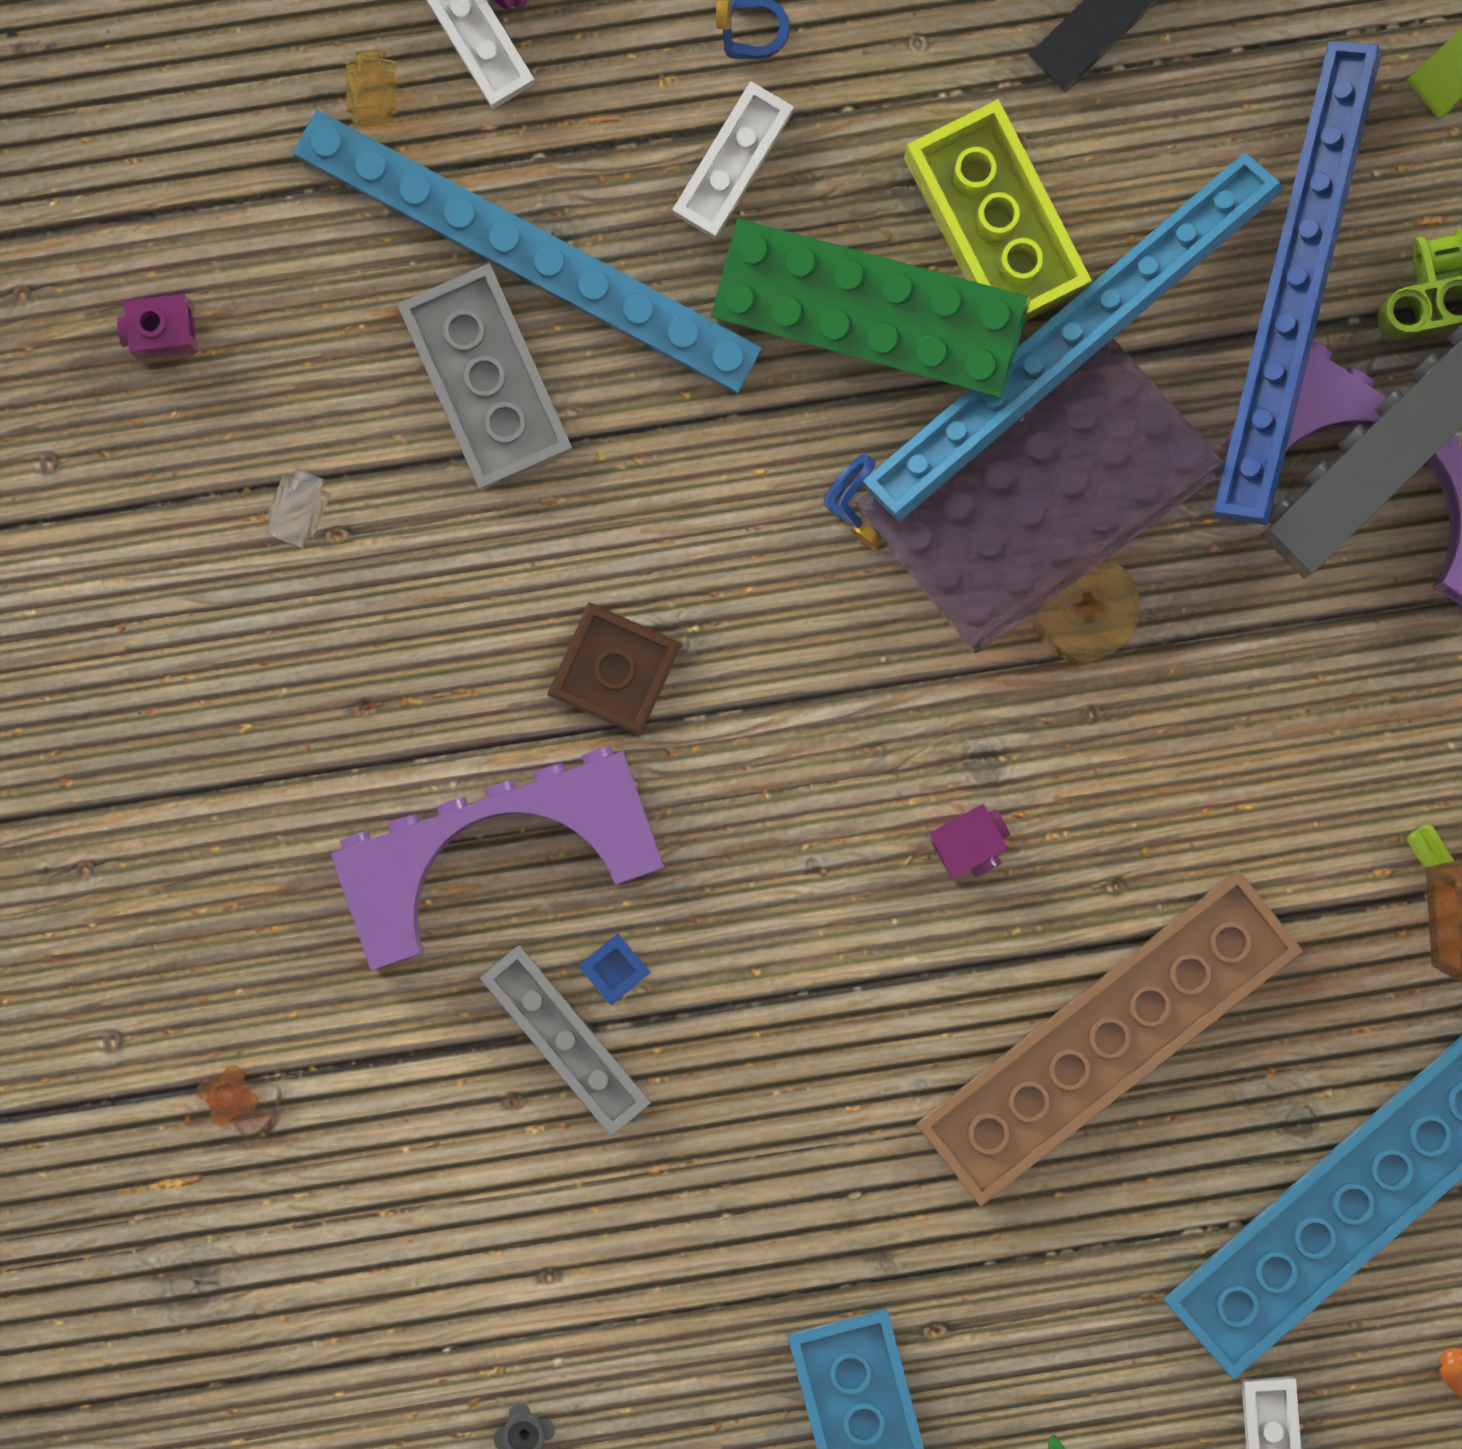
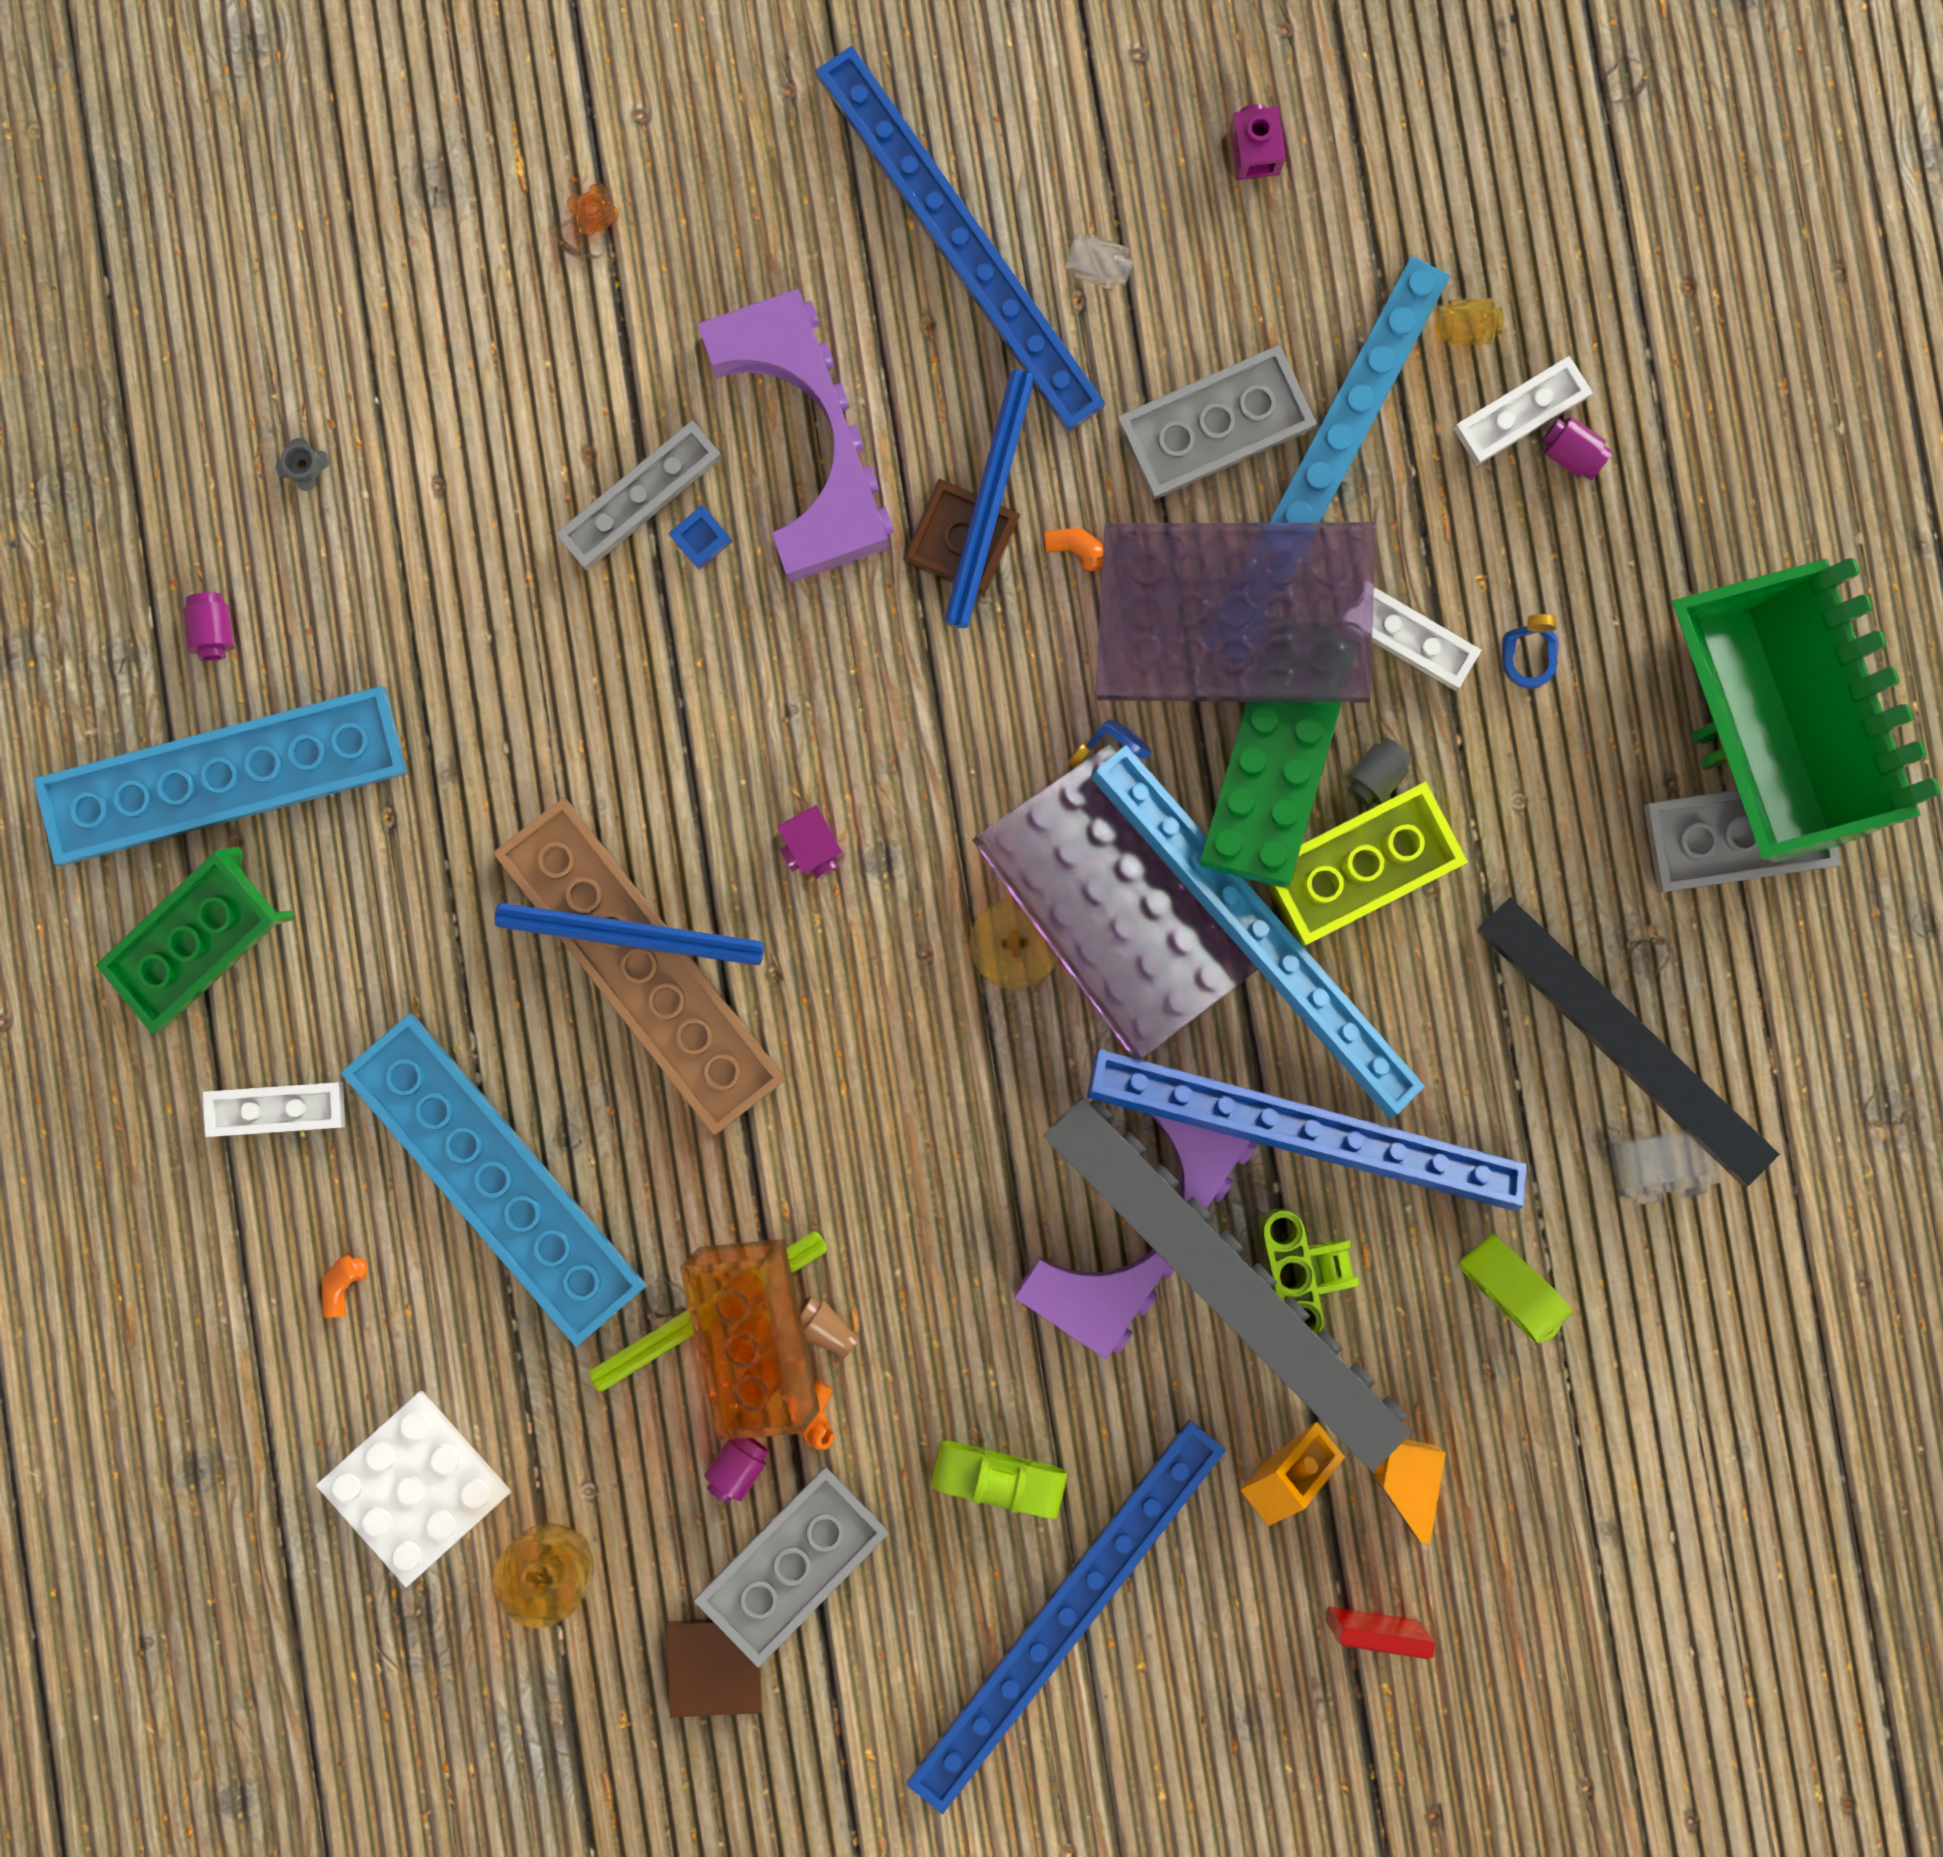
camera: 90 degrees right, 0 degrees up
(266, 670) = (960, 238): none -> blue plate
(574, 635) = (989, 499): none -> blue axle
(622, 533) = (1078, 542): none -> orange arm
(710, 354) = (1237, 612): none -> clear purple plate
(888, 198) = (1379, 772): none -> dark grey brick
(1076, 1047) = (629, 934): none -> blue axle

